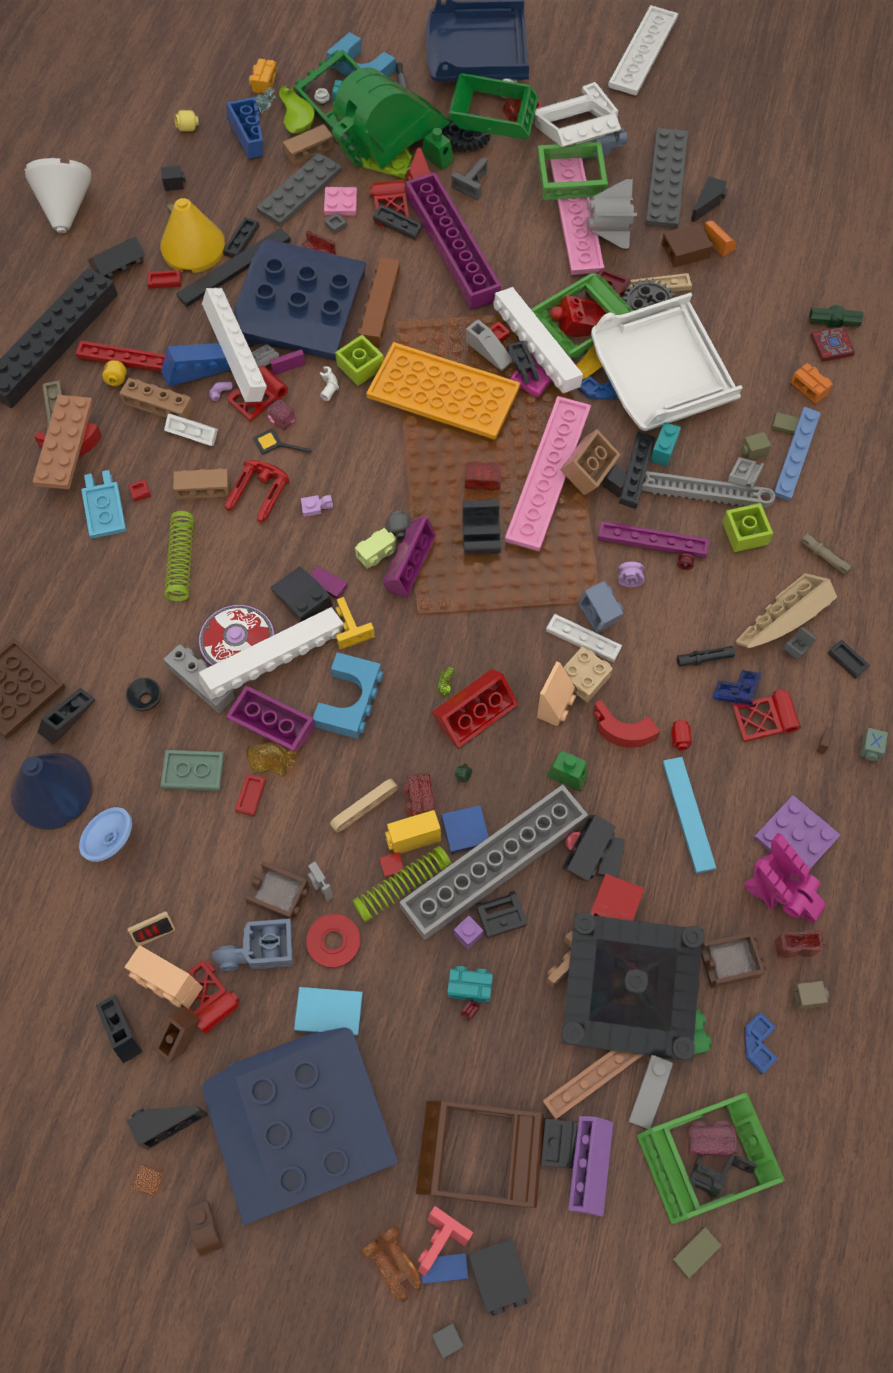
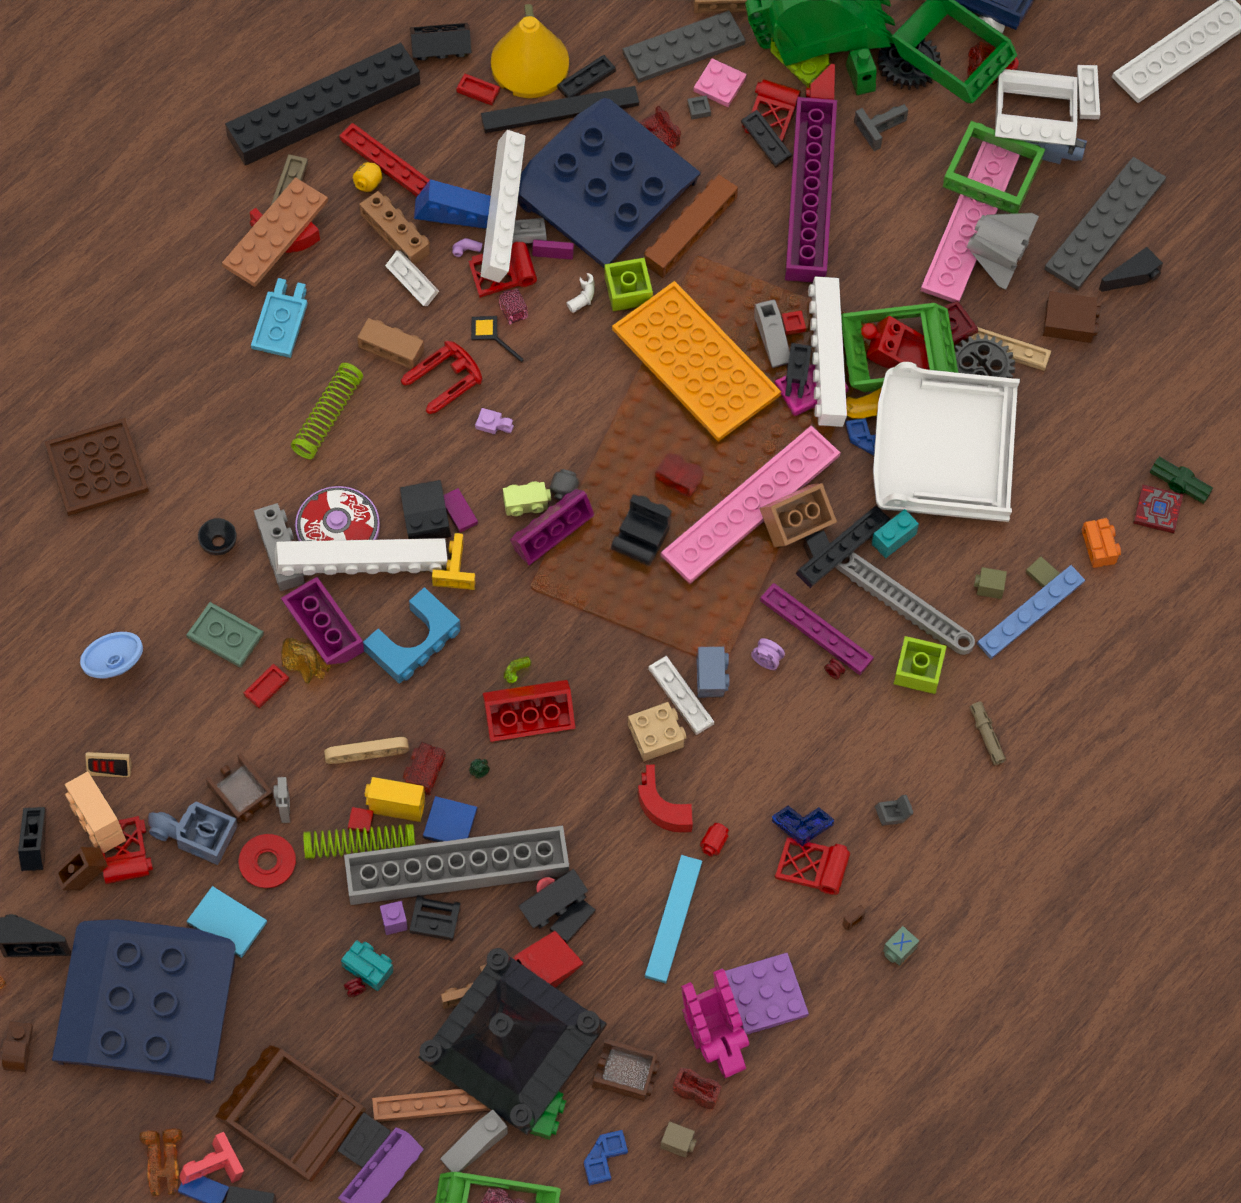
camera: 25 degrees right, 0 degrees up
(51, 790) = (84, 587): dark blue cone -> none
(65, 715) = (133, 520): black slope -> none
(139, 490) = (325, 320): red tile -> none
(556, 696) = (610, 737): light nougat slope -> none
(569, 770) = (579, 815): green torso -> none
(705, 656) = (791, 775): black pin -> none
(721, 240) = (1113, 325): orange brick -> none
(745, 472) = (959, 605): light grey plate -> none
(792, 609) = (916, 771): tan wedge -> none
(848, 659) = (937, 851): black tile -> none

